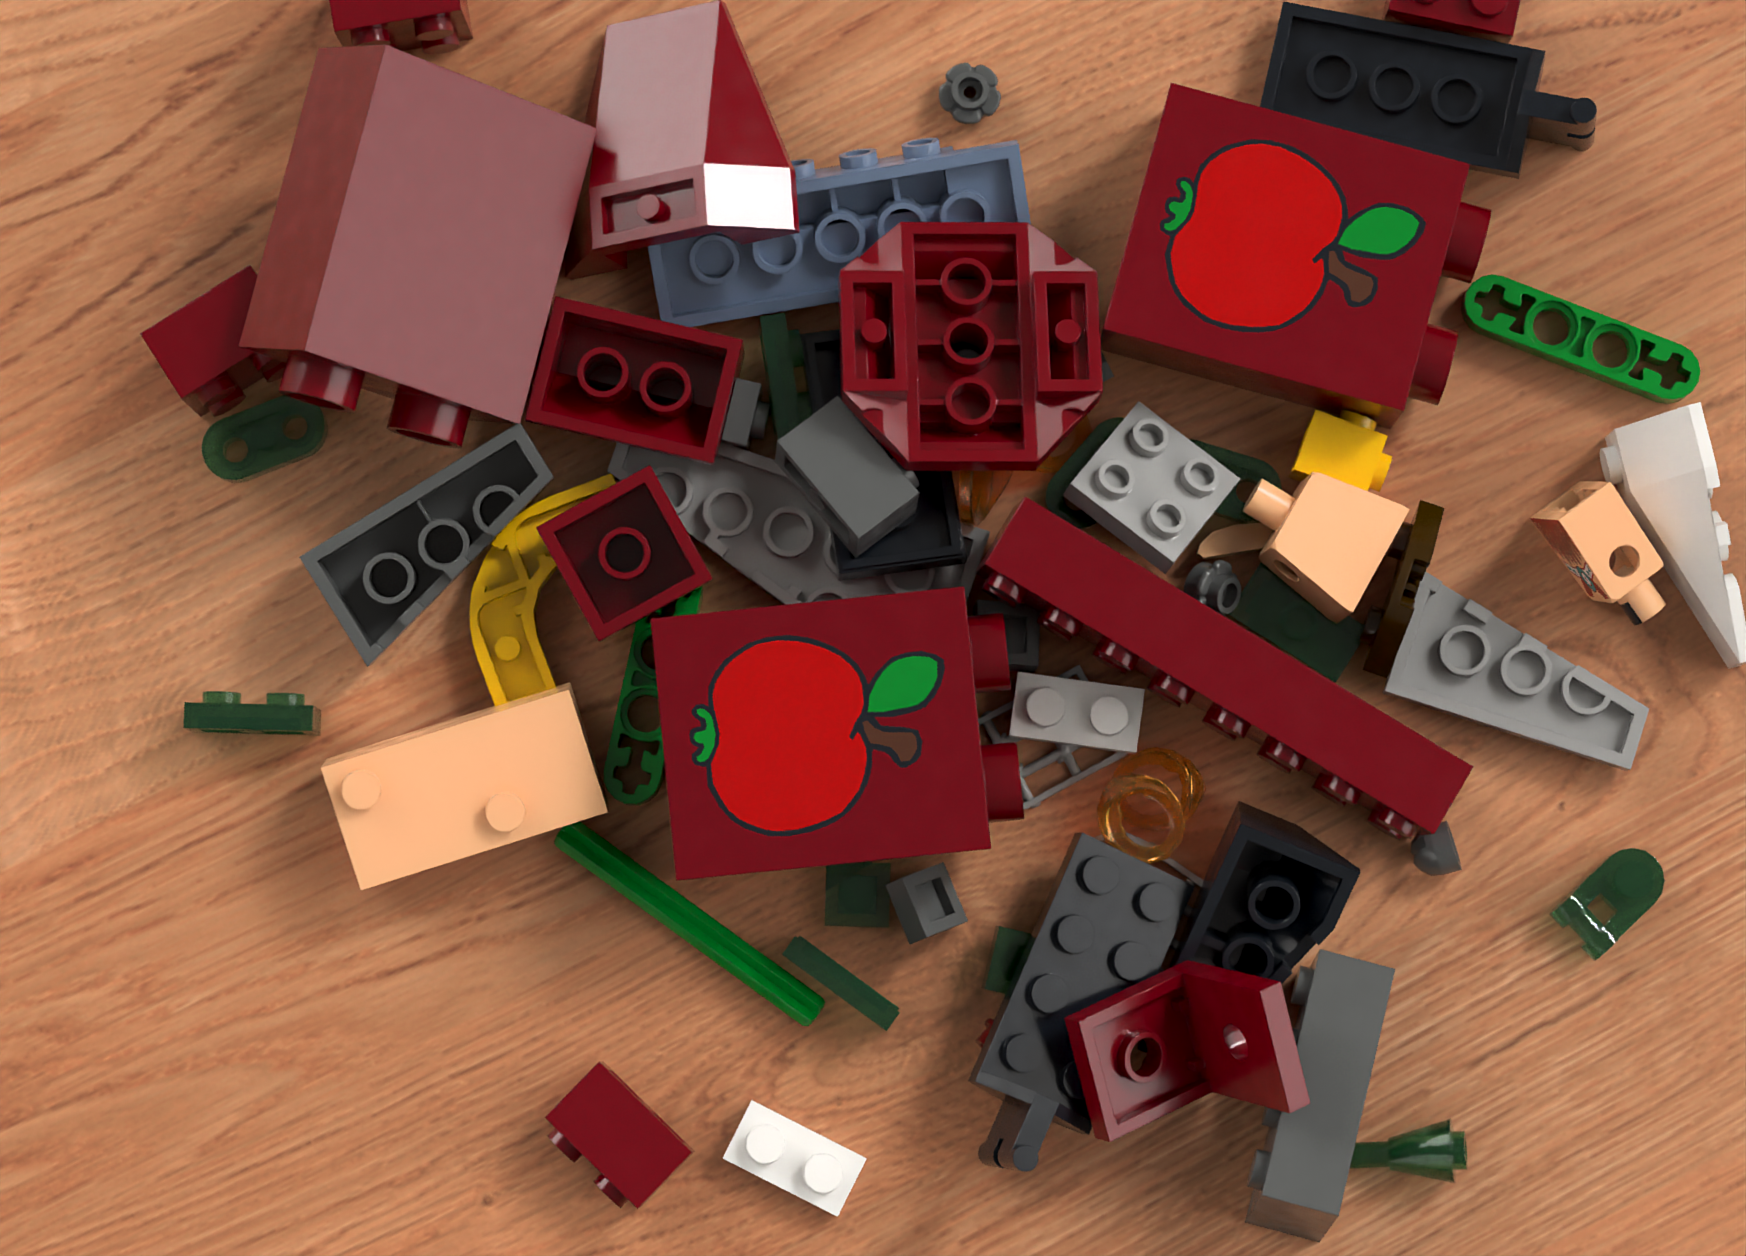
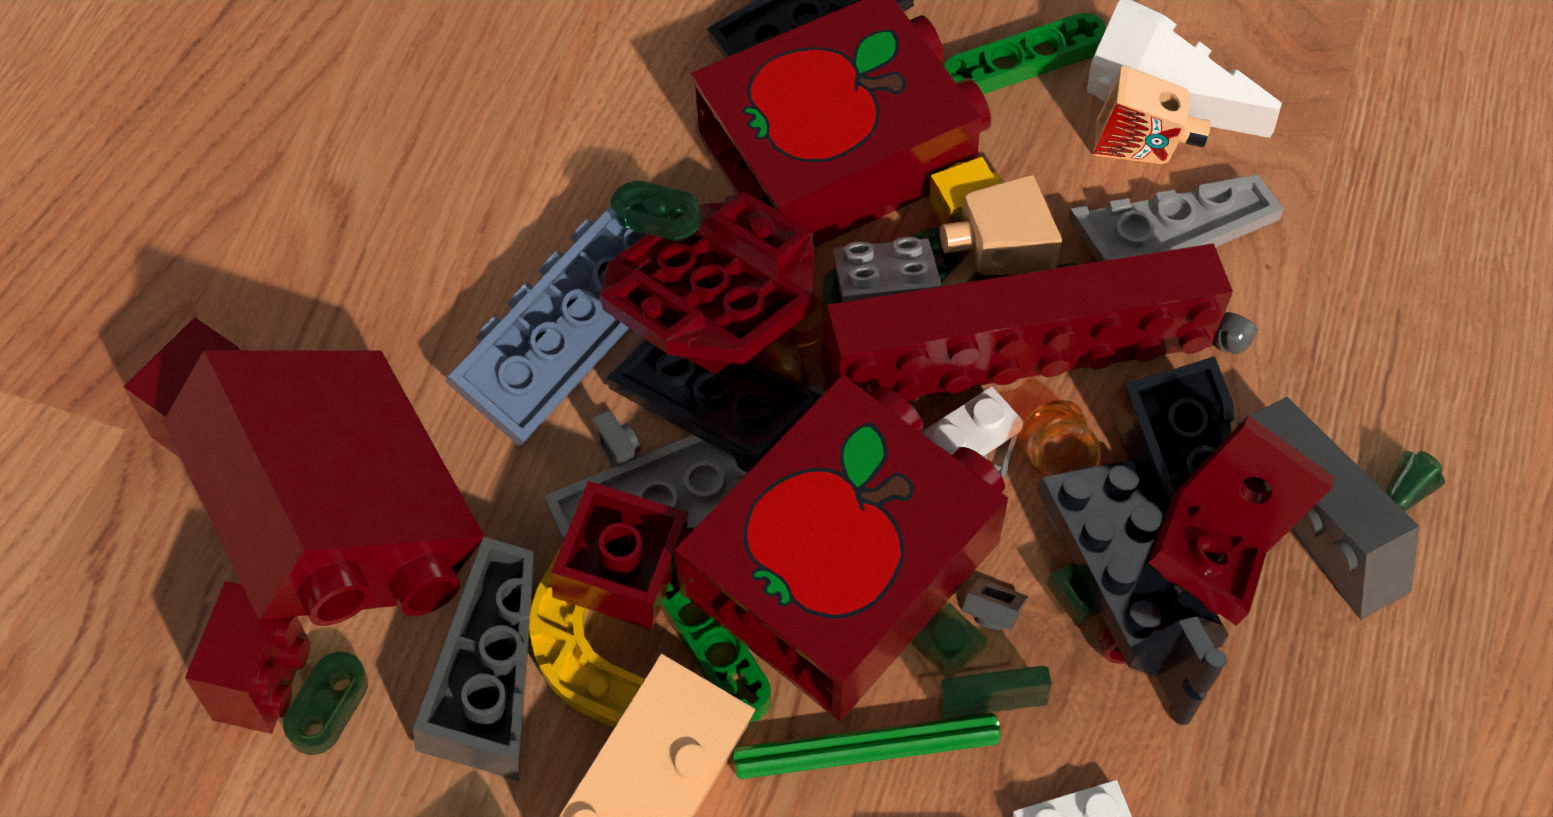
camera: 45 degrees left, 25 degrees down
(635, 380) = (532, 462): dark red slope -> none
(678, 143) = (440, 329): wedge -> none
(781, 354) = (604, 392): clear green plate -> none
(847, 476) = (711, 403): dark grey brick -> none
(973, 109) = (582, 207): dark grey plate -> none
(993, 215) = (656, 210): none -> clear green plate
(1387, 625) = (1082, 228): dark brown plate -> none
(1627, 883) = (1347, 268): clear green plate -> none

